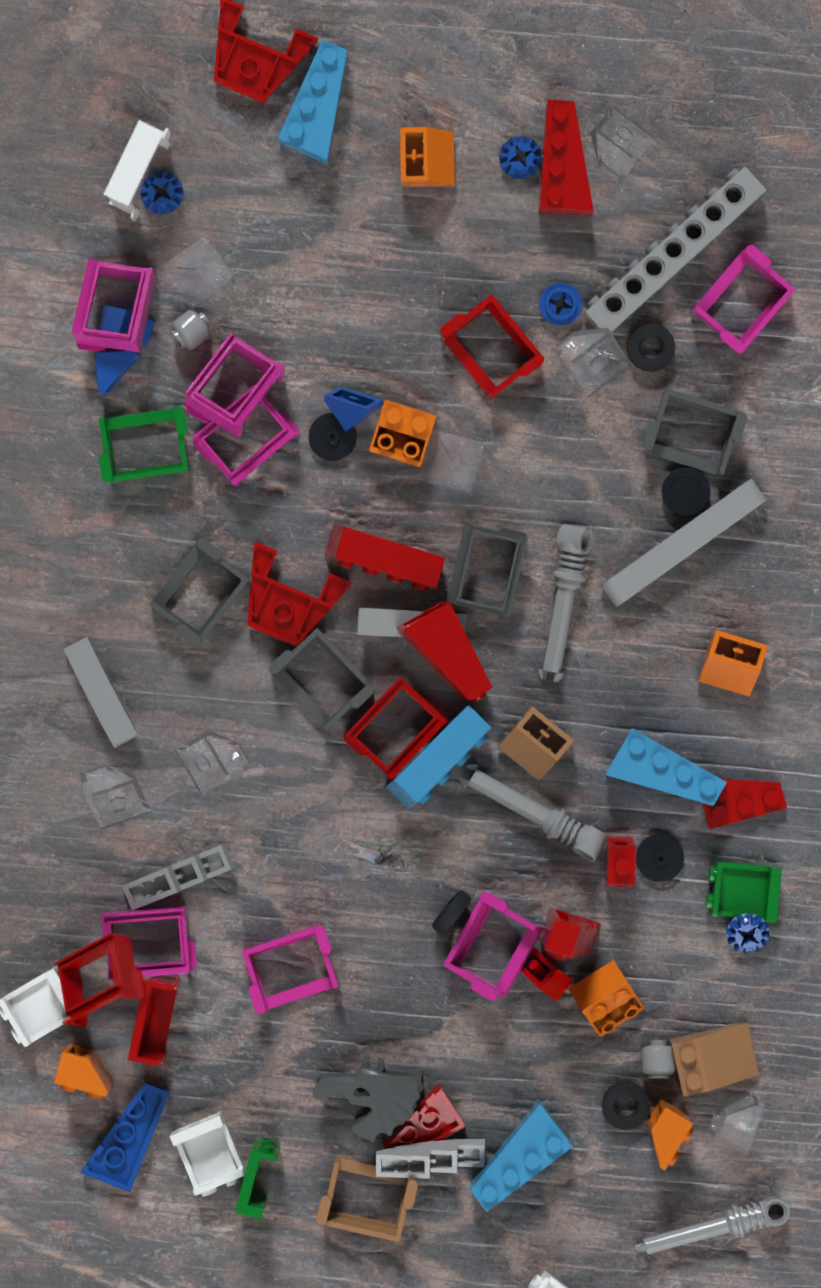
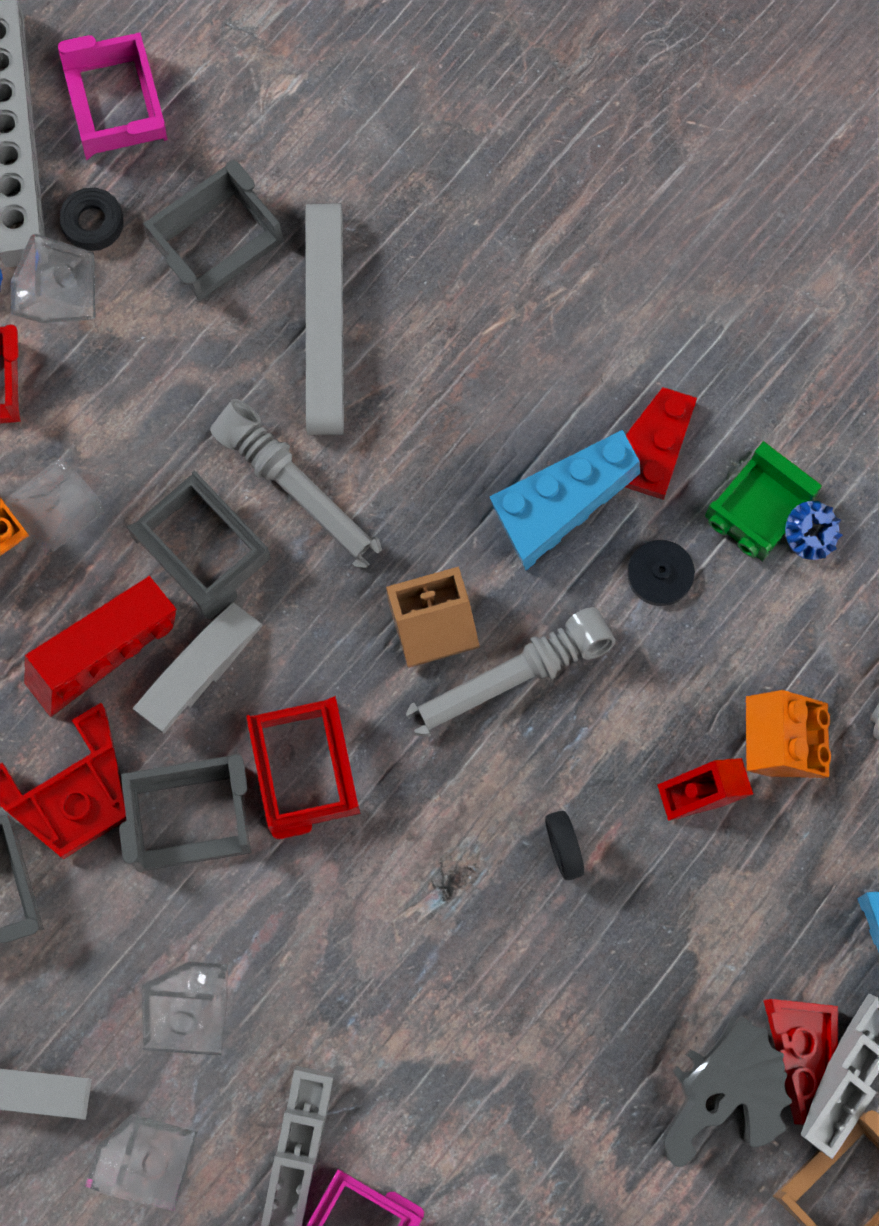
camera: 55 degrees left, 15 degrees down
(260, 1001) = (504, 1026): dark pink piece -> none
(439, 757) = (372, 739): dark azure wedge -> none
(446, 648) = (256, 642): red slope -> none
(470, 932) = (581, 793): dark pink piece -> none
(568, 934) = (675, 723): red wedge -> none
(620, 862) = (639, 615): red torso -> none
(685, 491) = (271, 282): black piece -> none
(732, 663) = (492, 348): orange slope -> none

